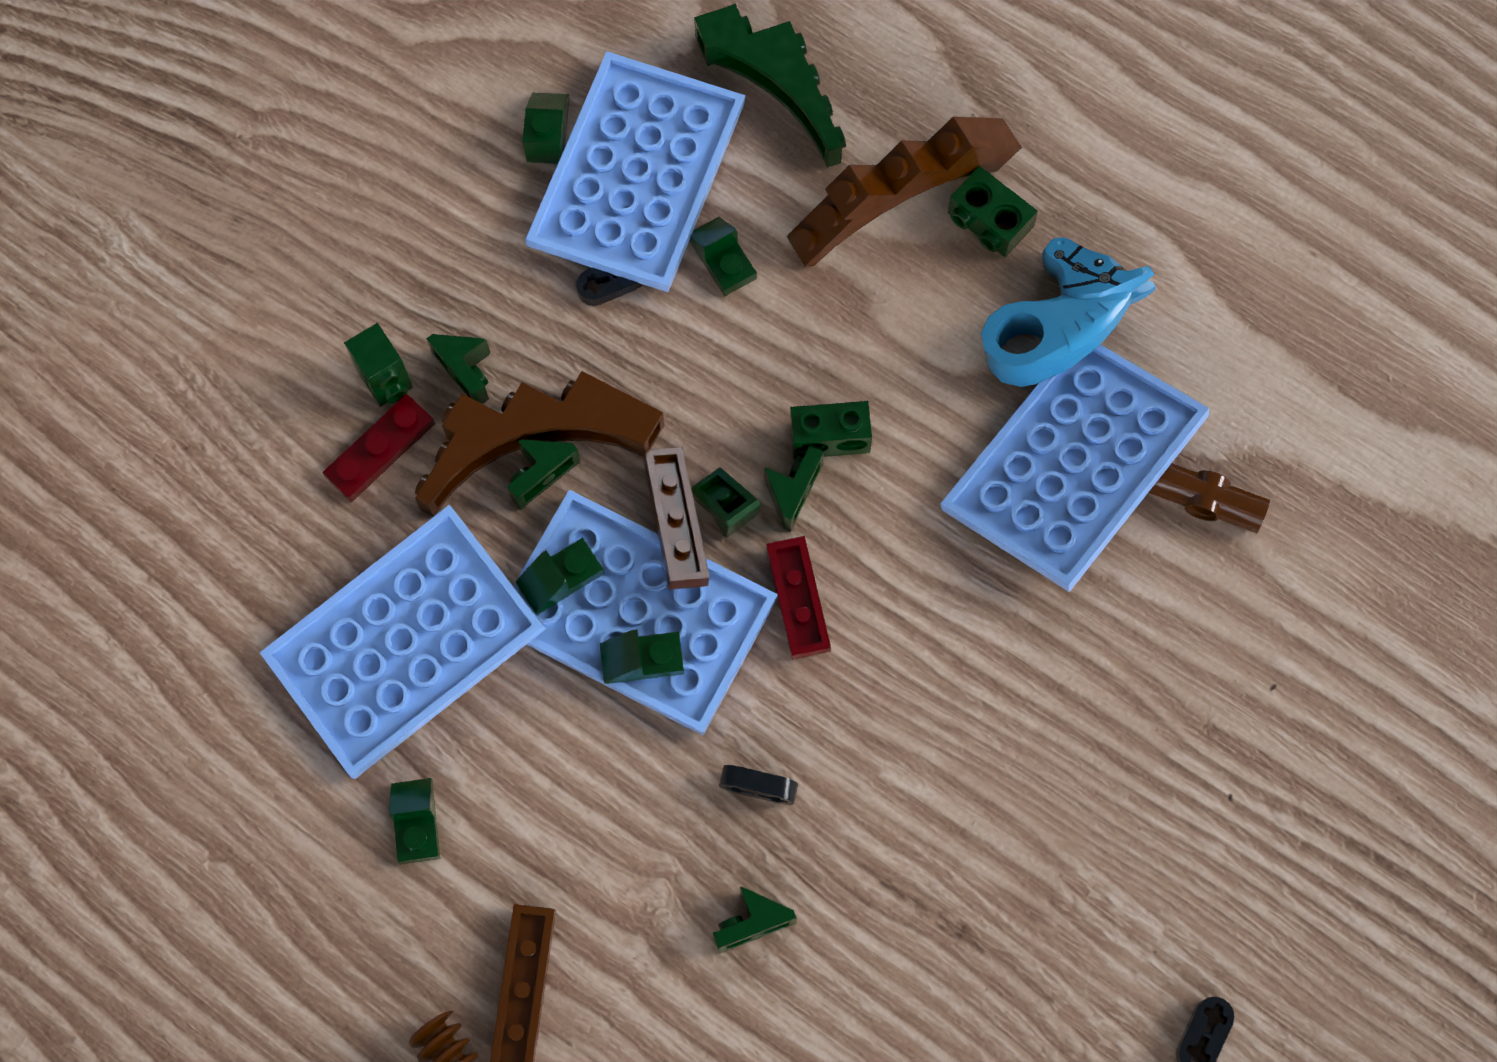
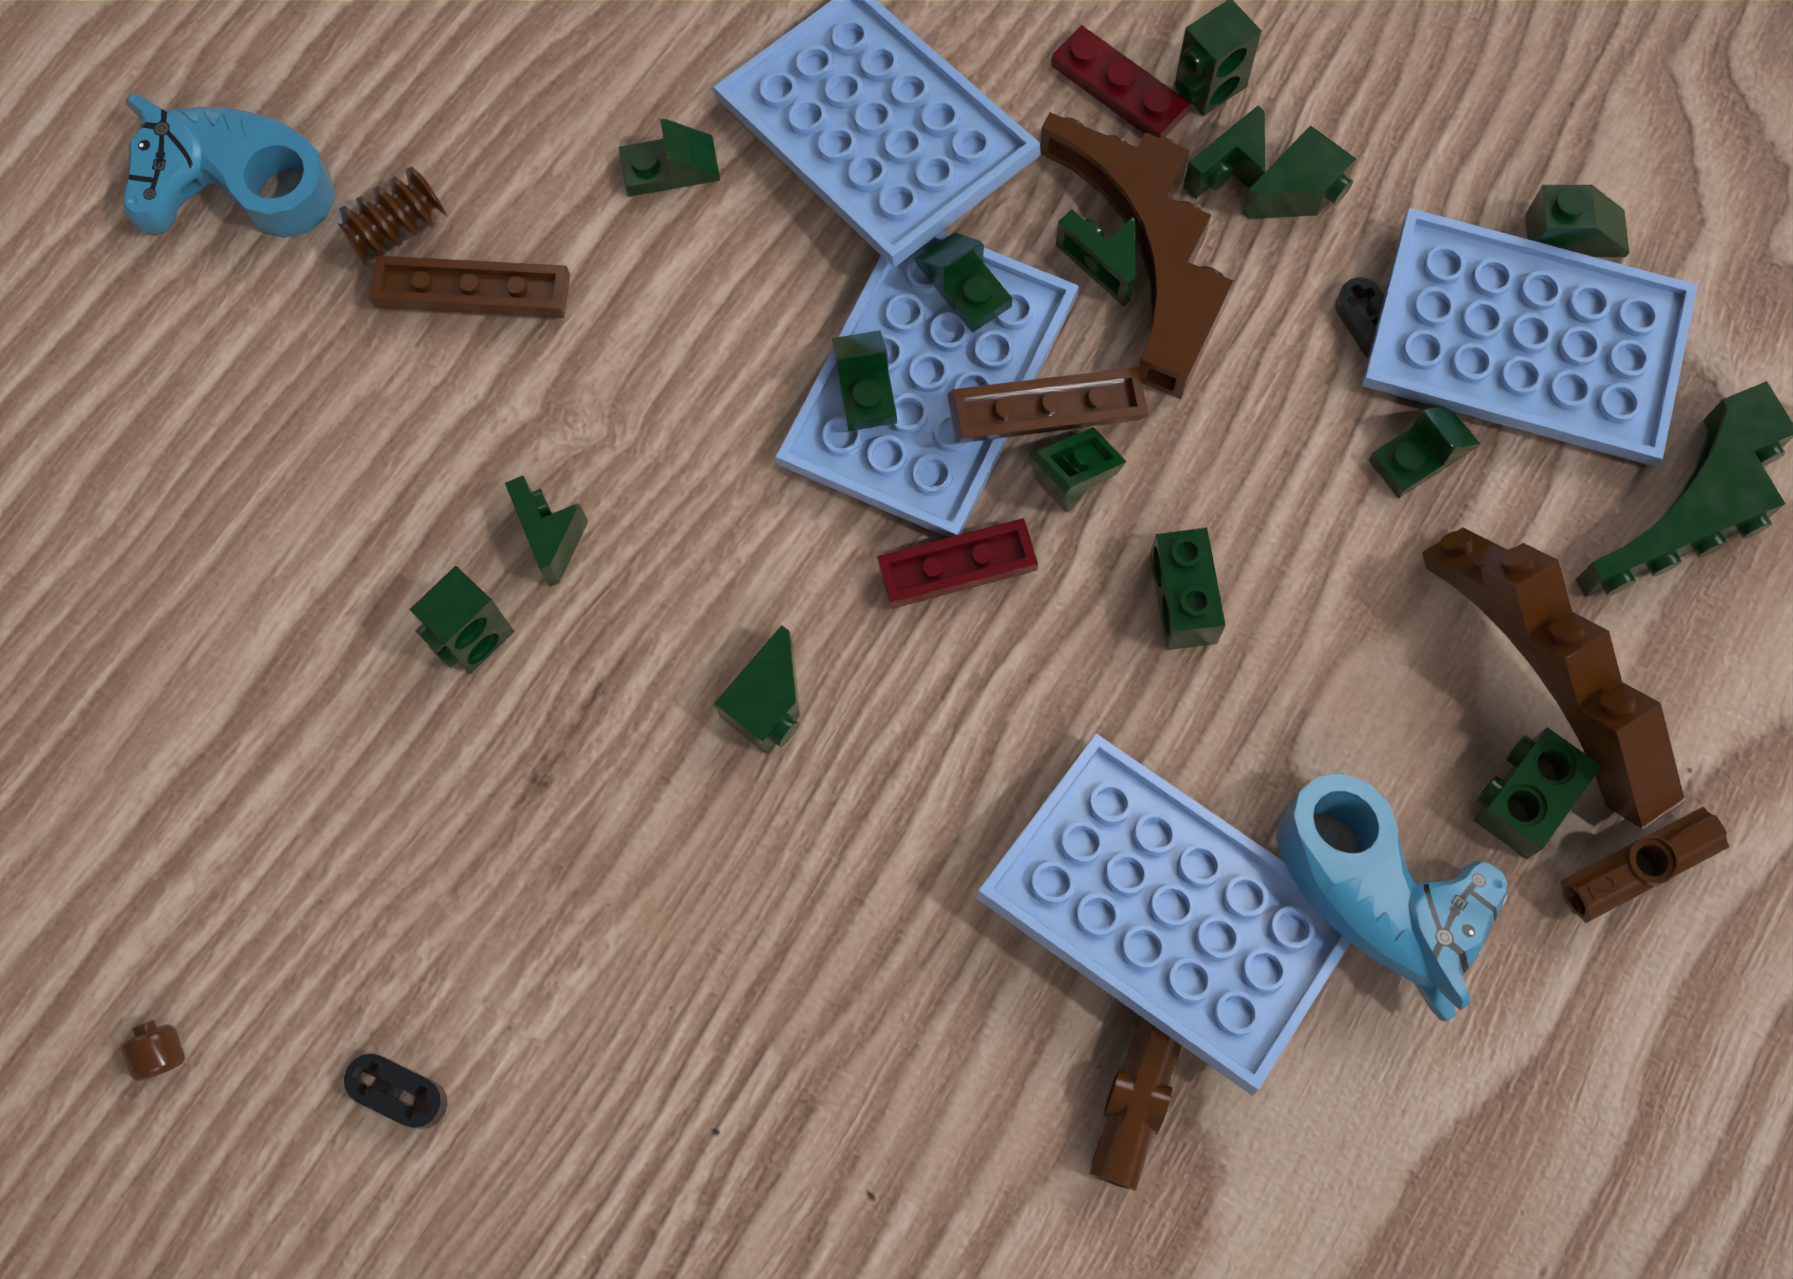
camera: 90 degrees right, 0 degrees up
(486, 313) = (1302, 179): none -> dark green slope
(758, 784) = (713, 527): black beam -> none
(791, 493) = (1091, 548): dark green slope -> none
(839, 981) = (460, 621): none -> dark green brick
(901, 744) = (764, 696): none -> dark green slope
(1053, 168) = (1669, 849): none -> reddish brown piece

